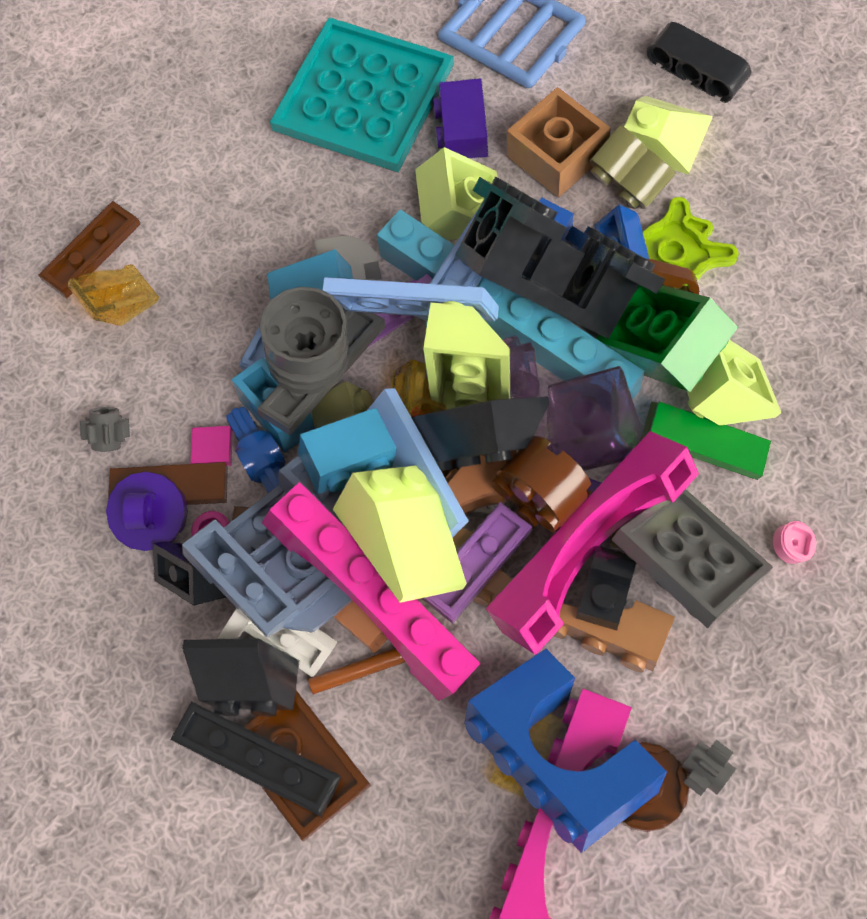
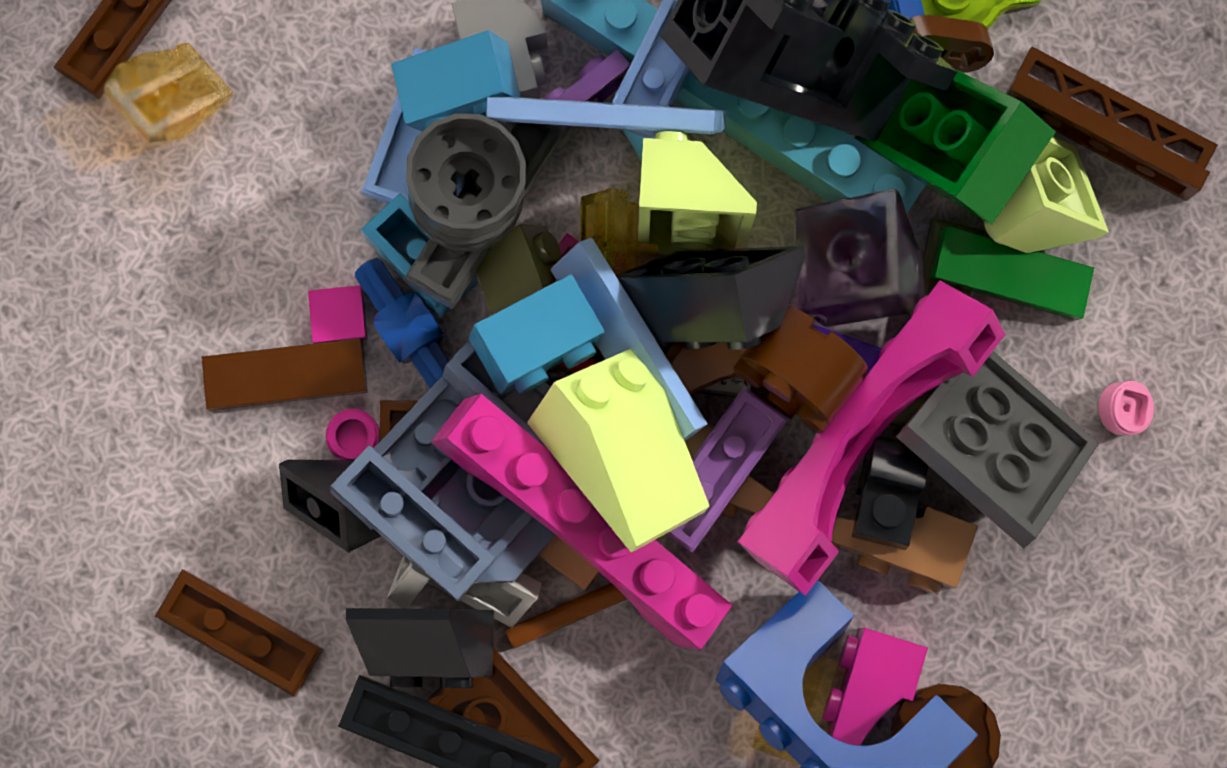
camera: 10 degrees left, 15 degrees up
(104, 429) = (187, 301): dark grey gear -> none
(109, 668) = (239, 632): none -> reddish brown tile
(146, 510) = (262, 416): dark purple tile -> none
(523, 369) = (762, 183): clear purple hips -> none
(708, 767) = (1024, 713): dark grey gear -> none
(787, 351) = (1103, 133): none -> reddish brown fence

